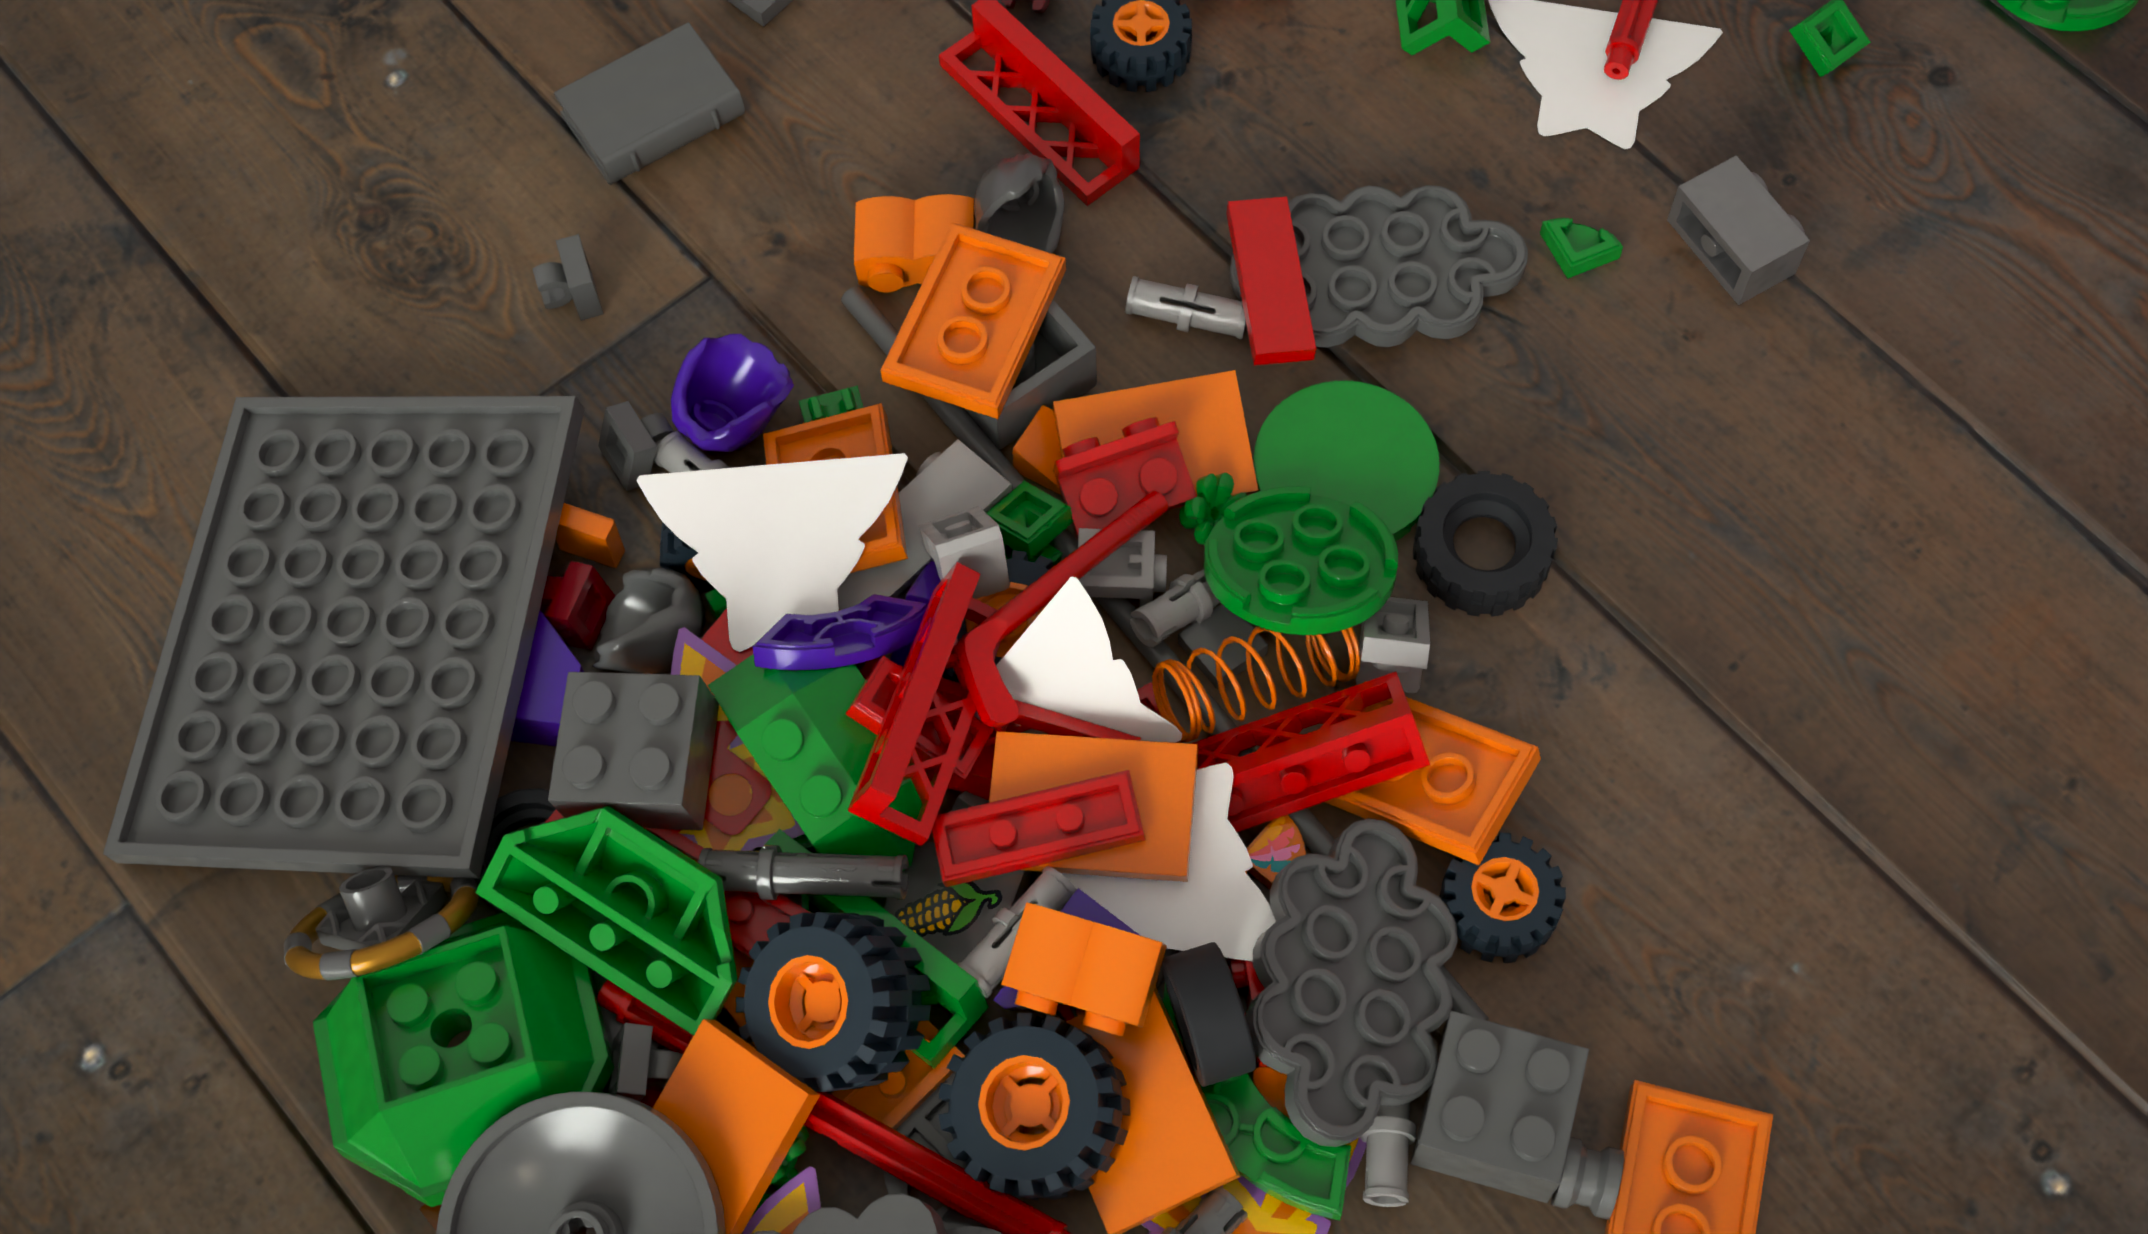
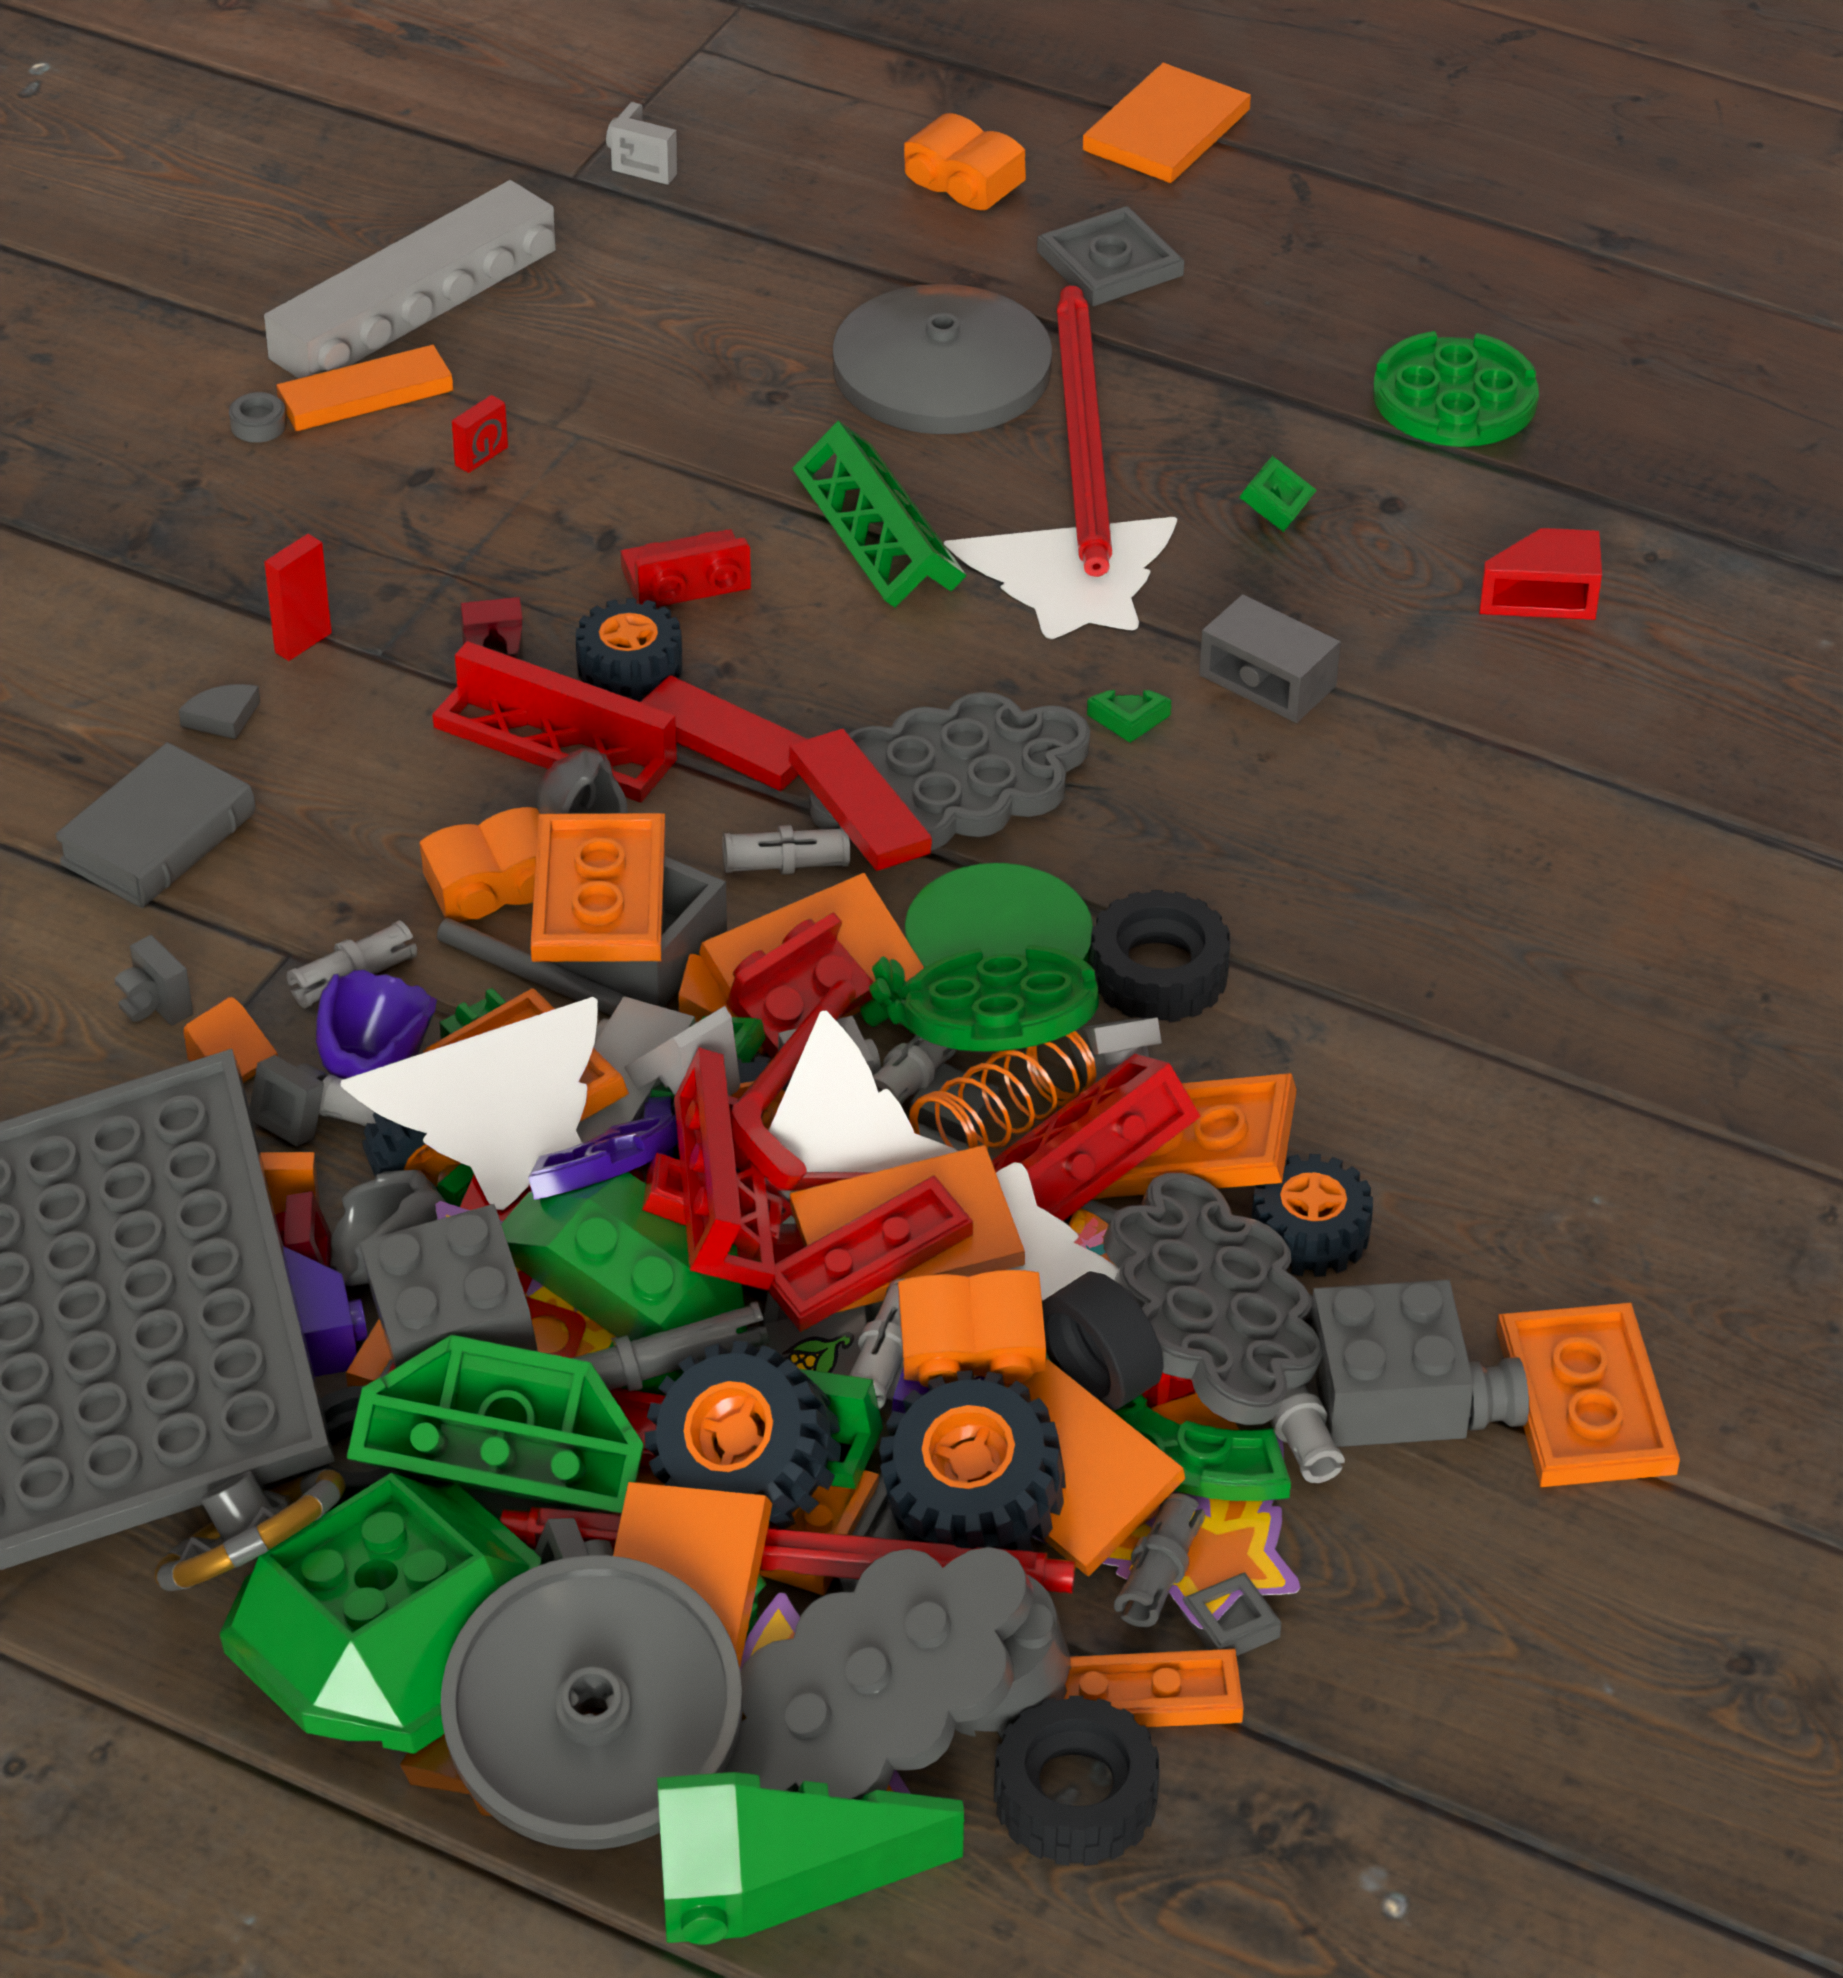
camera: 25 degrees left, 20 degrees down
(610, 364) = (228, 1028): none -> orange slope
(752, 309) = (369, 954): none -> light grey pin
(1189, 151) = (727, 732): none -> red tile
(2058, 214) = (1545, 576): none -> red slope

